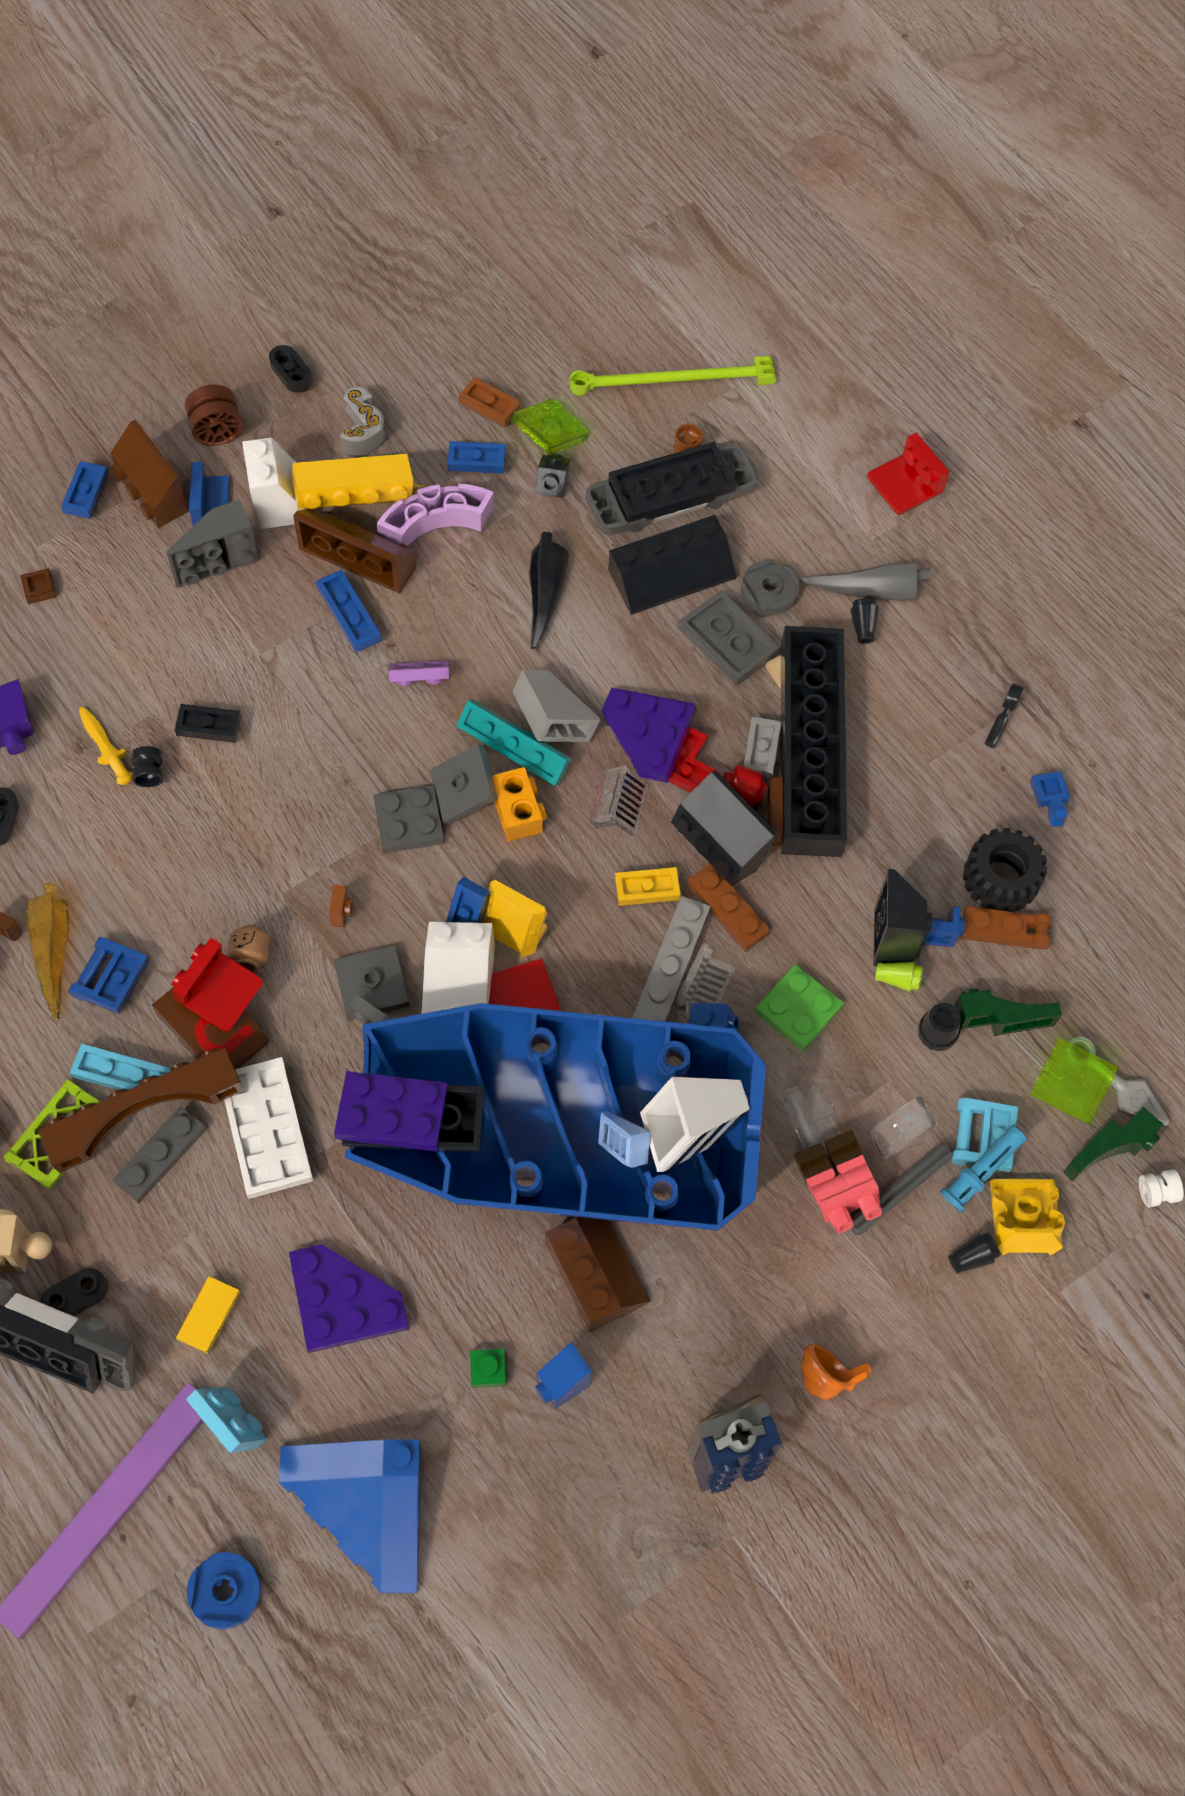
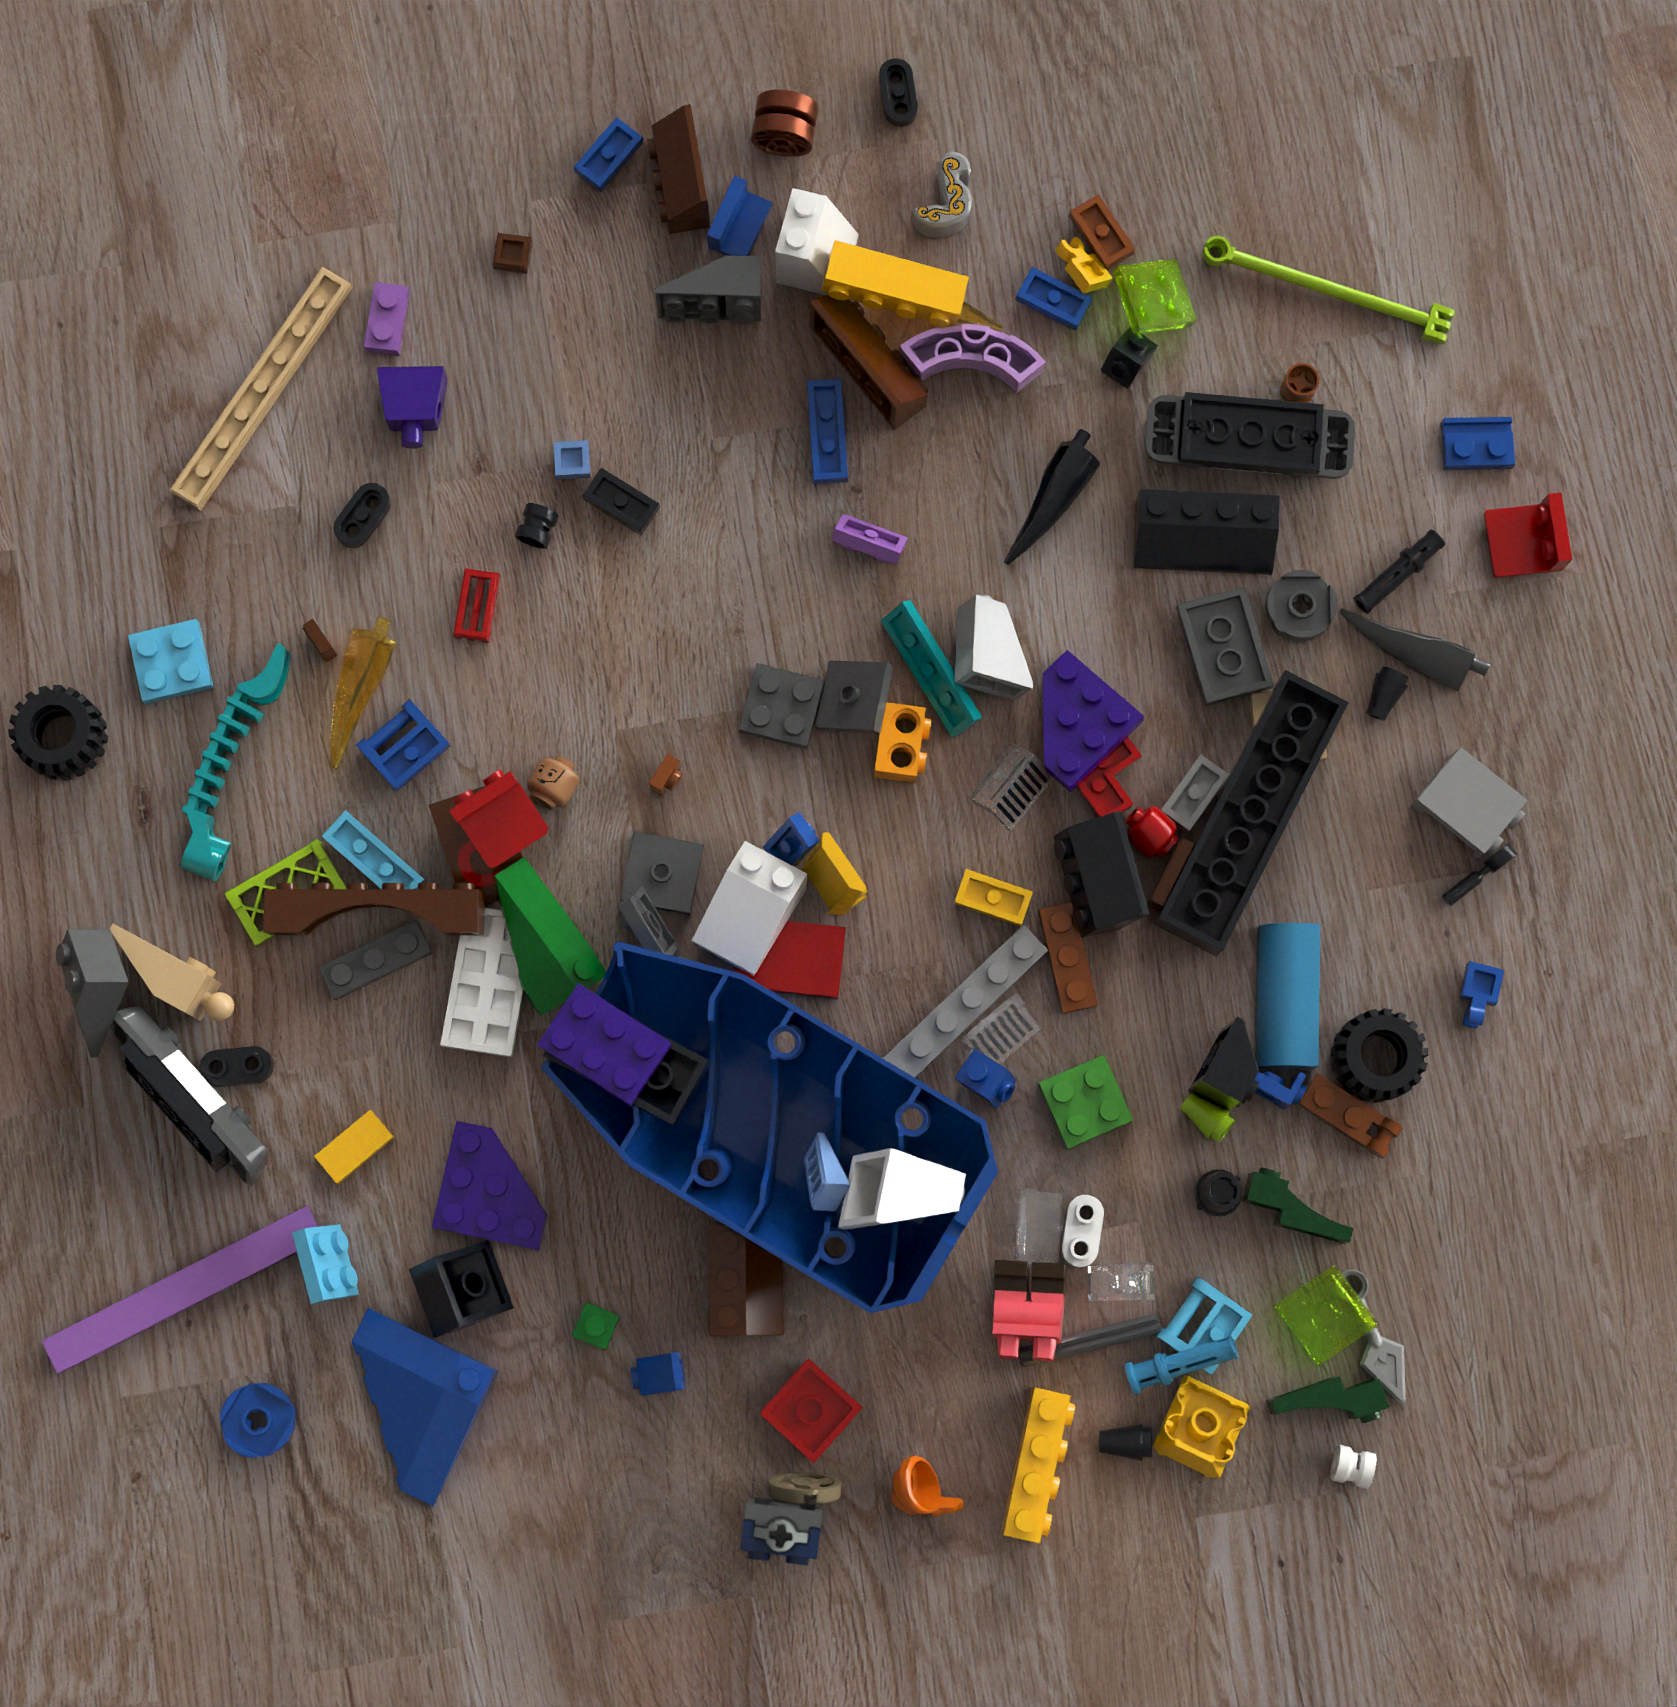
camera: 25 degrees right, 15 degrees up
(109, 753) = (506, 491): yellow sword -> none
(129, 868) = (472, 634): none -> red tile
(154, 709) = (572, 460): none -> medium blue plate
(297, 1068) = (544, 939): none -> green wedge
(355, 1389) = (461, 1288): none -> black slope
(489, 429) = (1084, 269): none -> yellow plate
(704, 1351) = (811, 1410): none -> red plate
(836, 434) = (1477, 443): none -> blue plate
(838, 512) = (1427, 545): none -> black pin
(849, 1105) = (1081, 1230): none -> white plate
(909, 848) = (1288, 996): none -> dark azure brick
(912, 1305) = (1035, 1465): none -> yellow brick
(970, 666) = (1471, 802): none -> light grey panel

